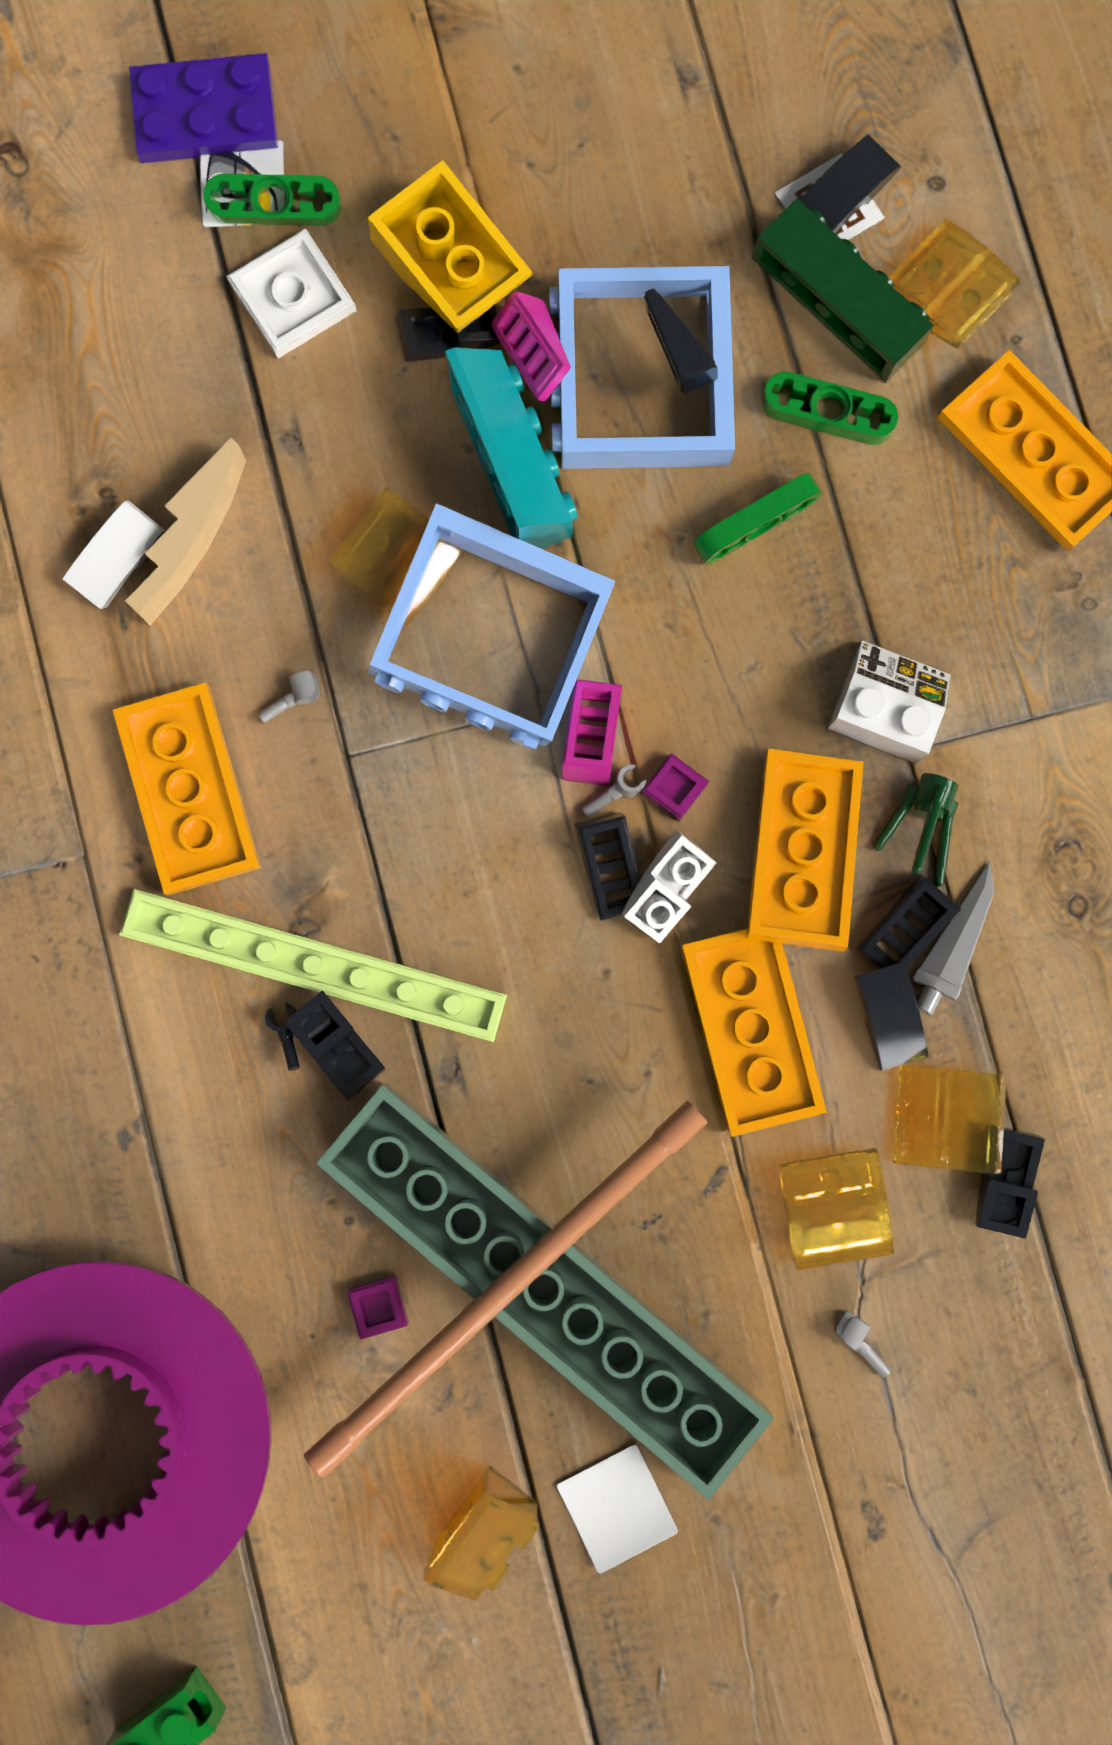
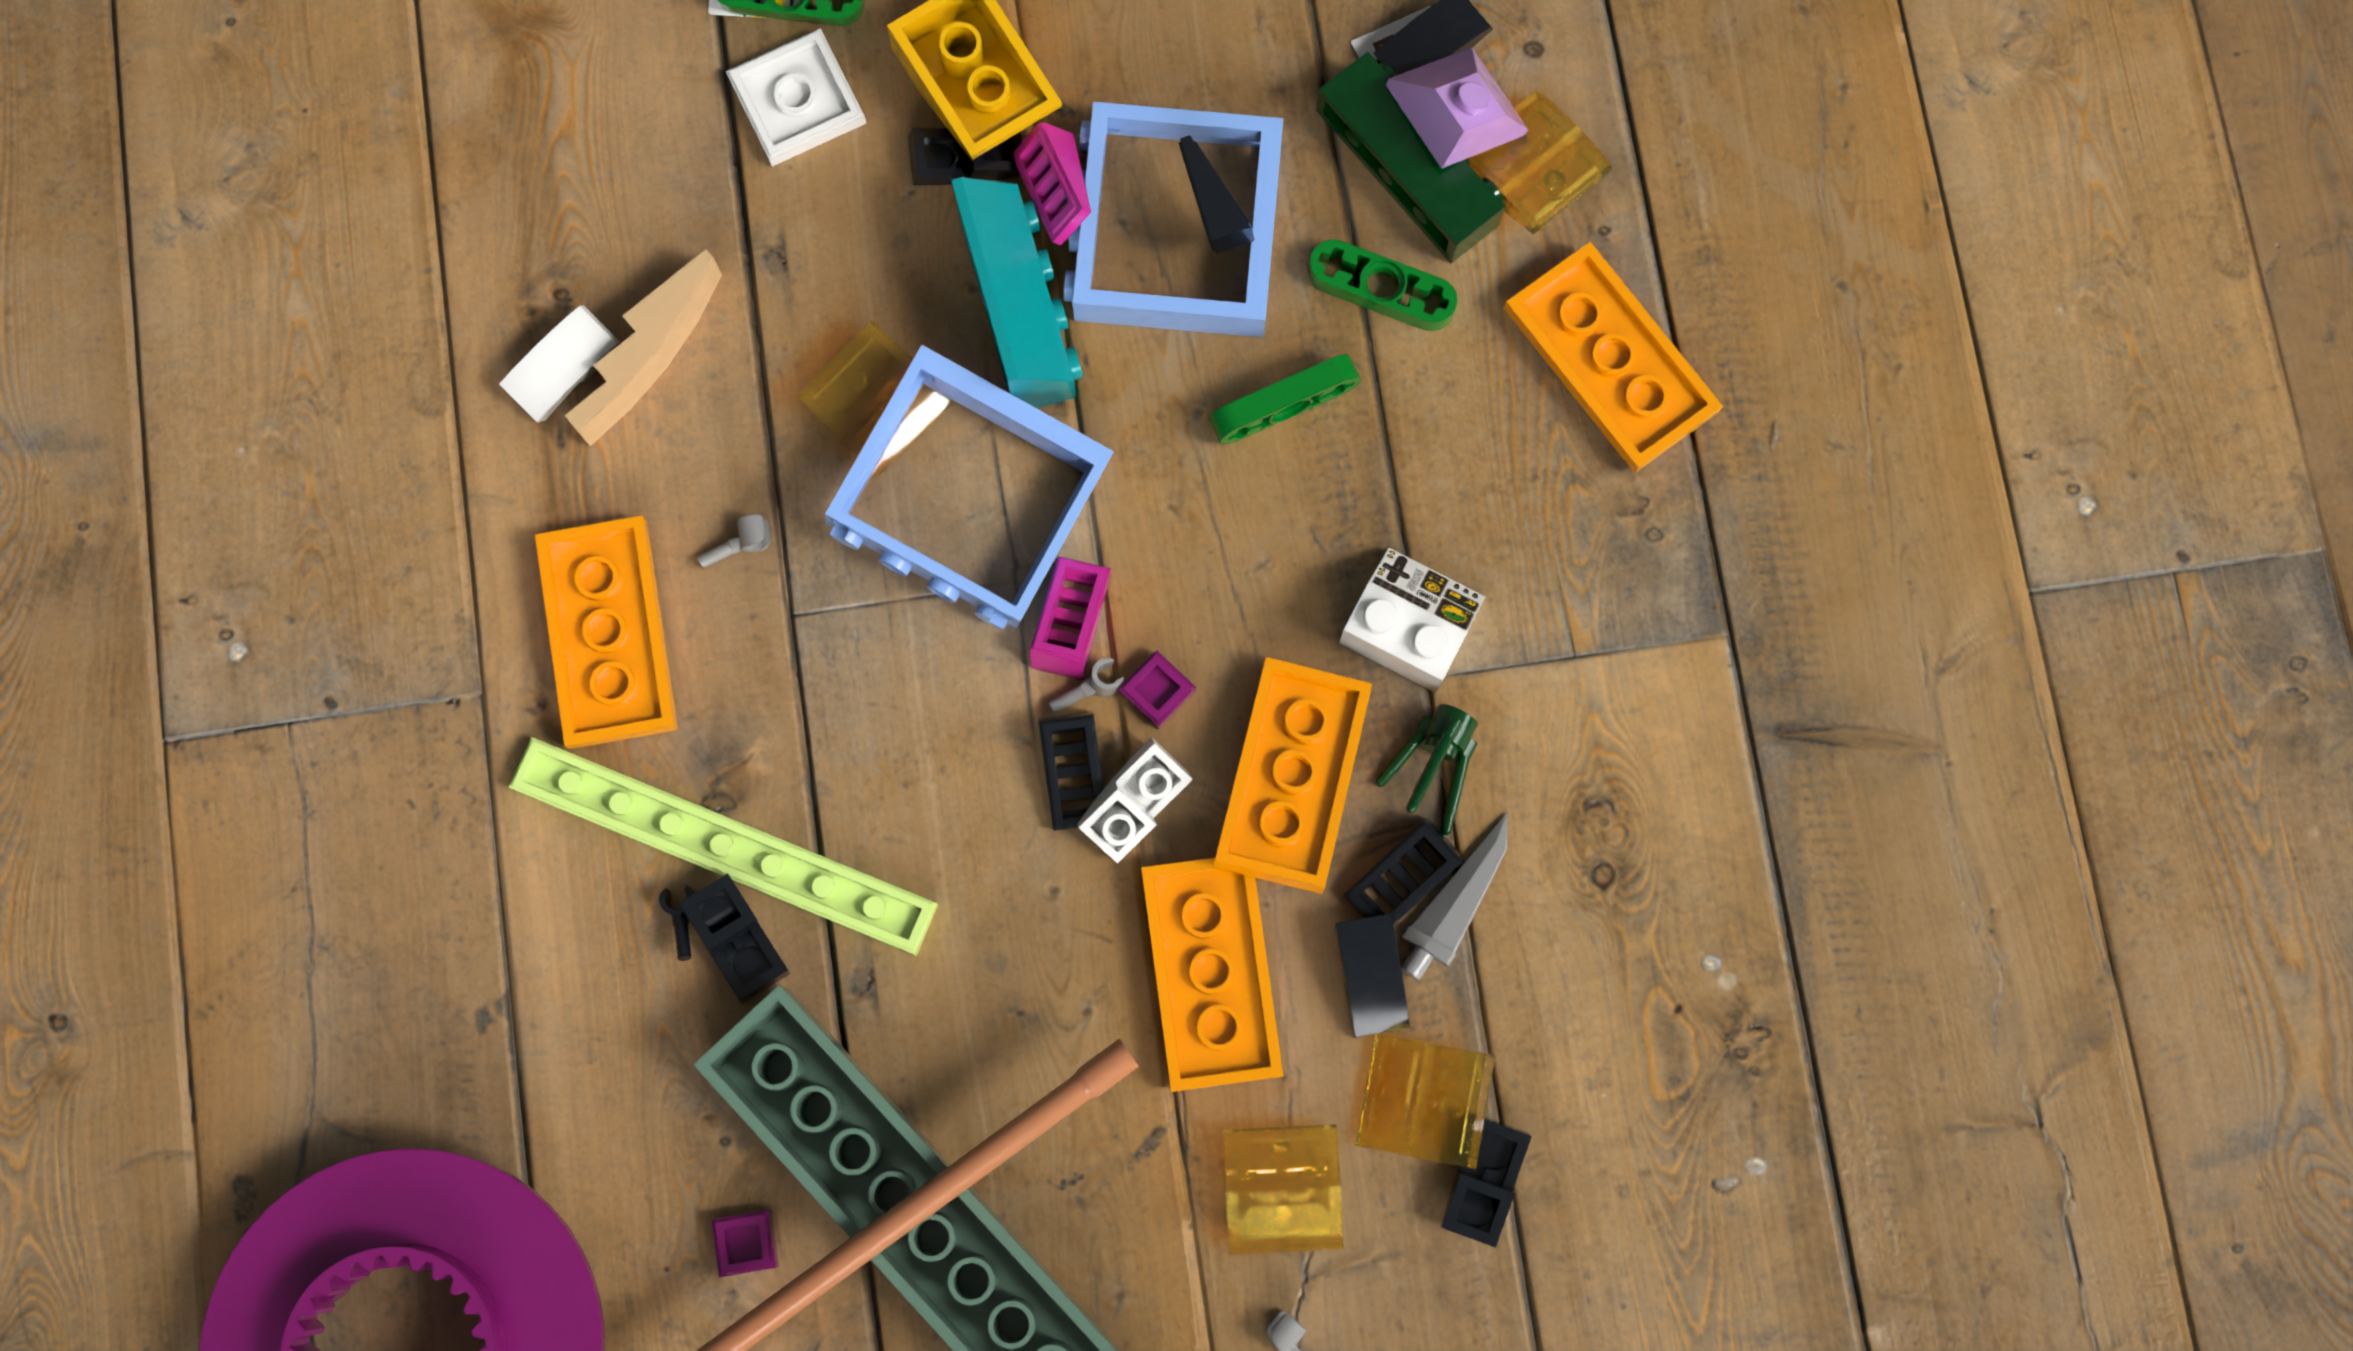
camera: 10 degrees right, 5 degrees down
(880, 240) = (1456, 107): none -> lavender slope

